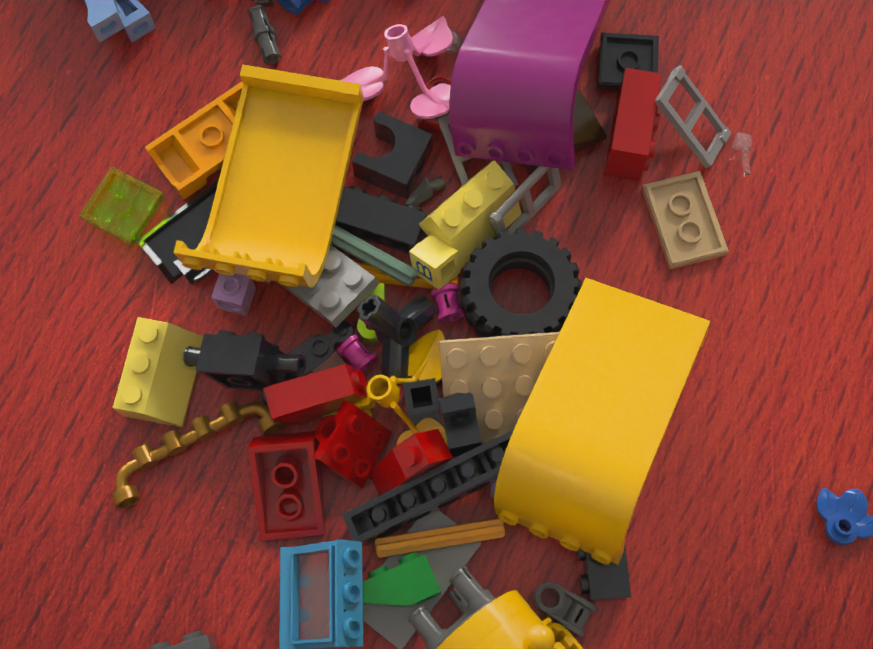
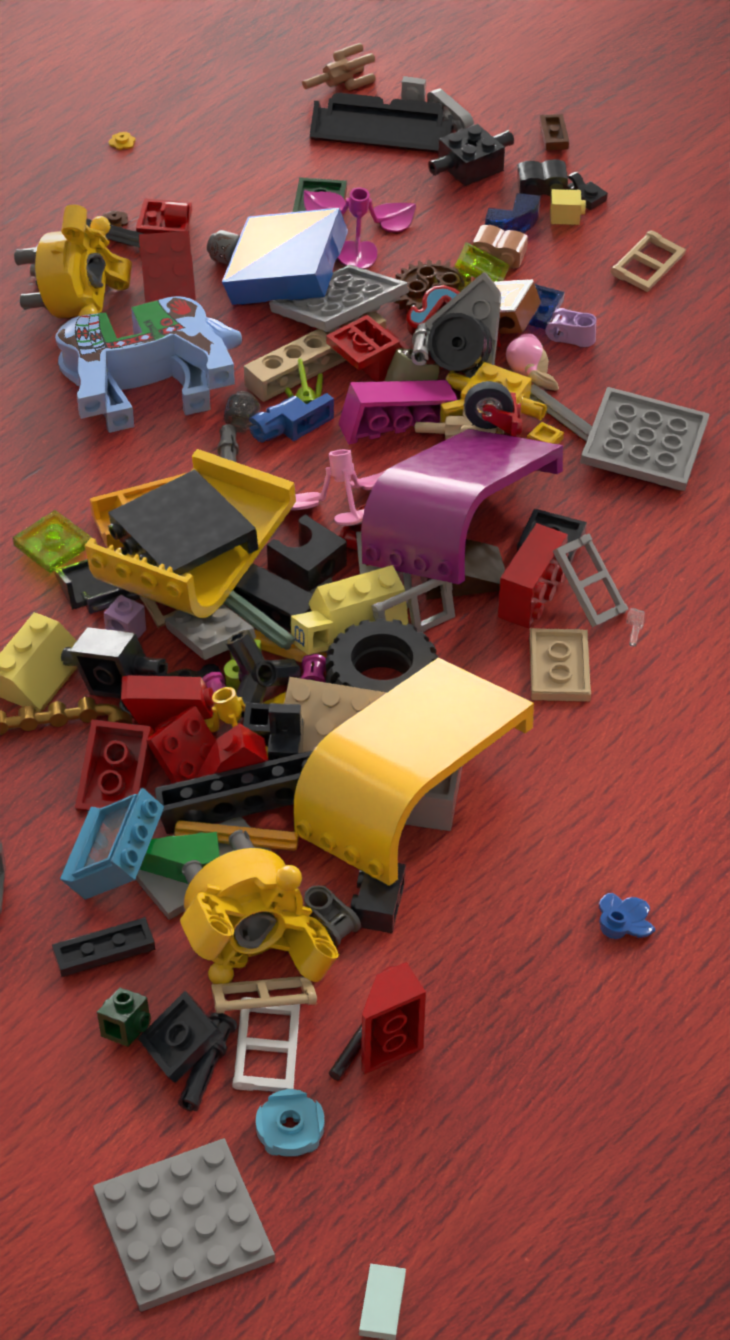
camera: 15 degrees right, 25 degrees down
(260, 175) = (181, 525): none -> black panel

